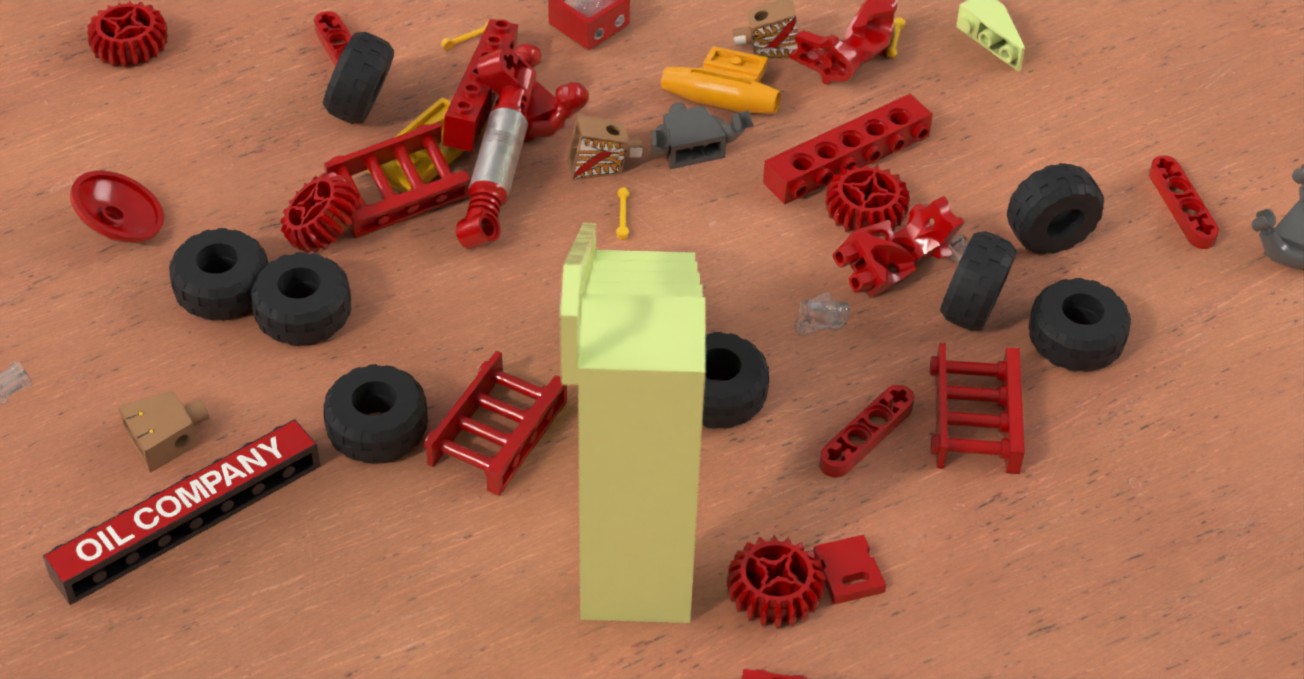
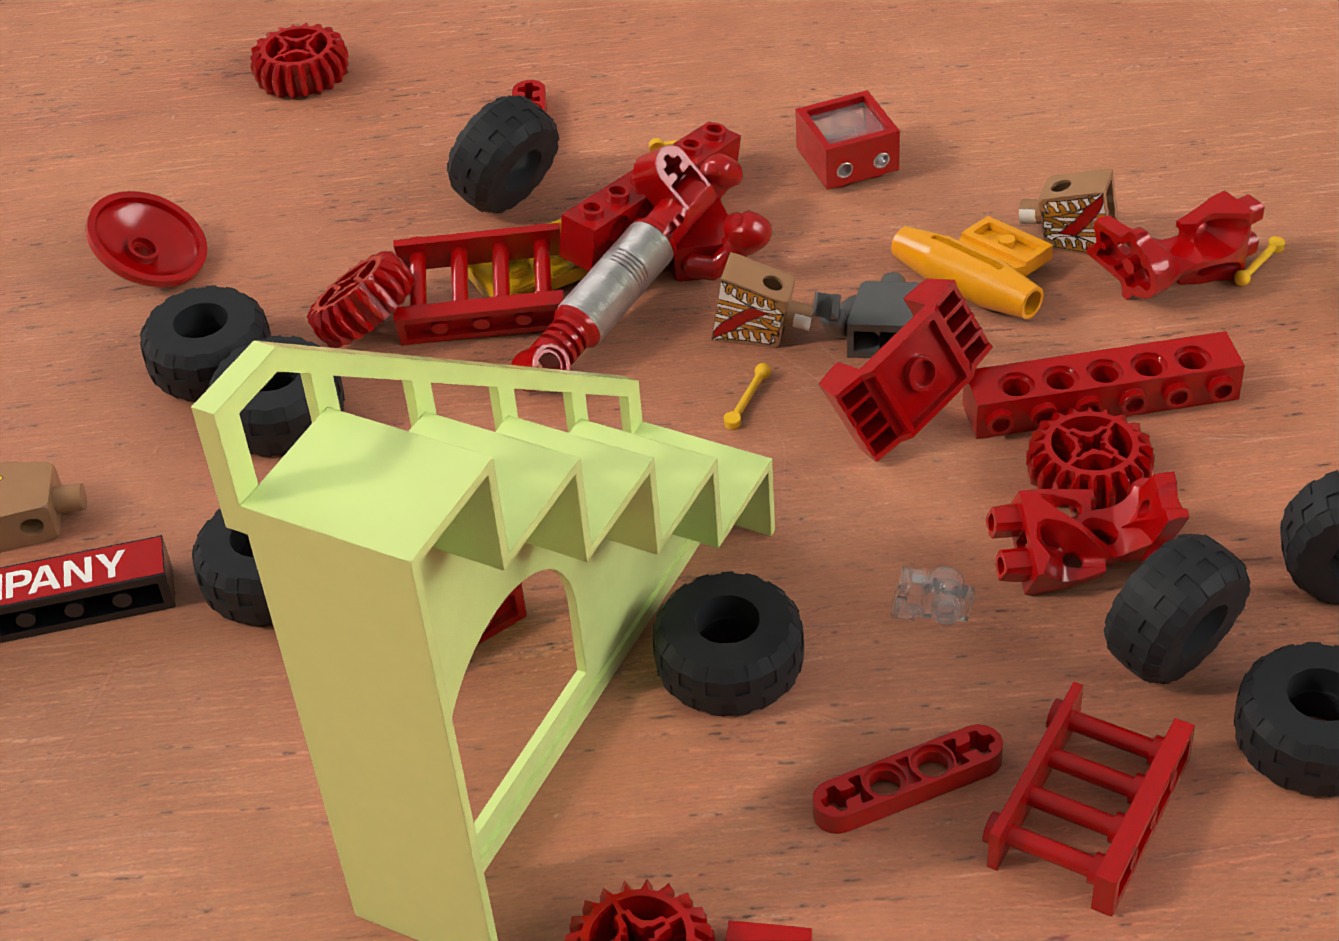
camera: 30 degrees right, 5 degrees down
(742, 175) = (912, 372): none -> red plate

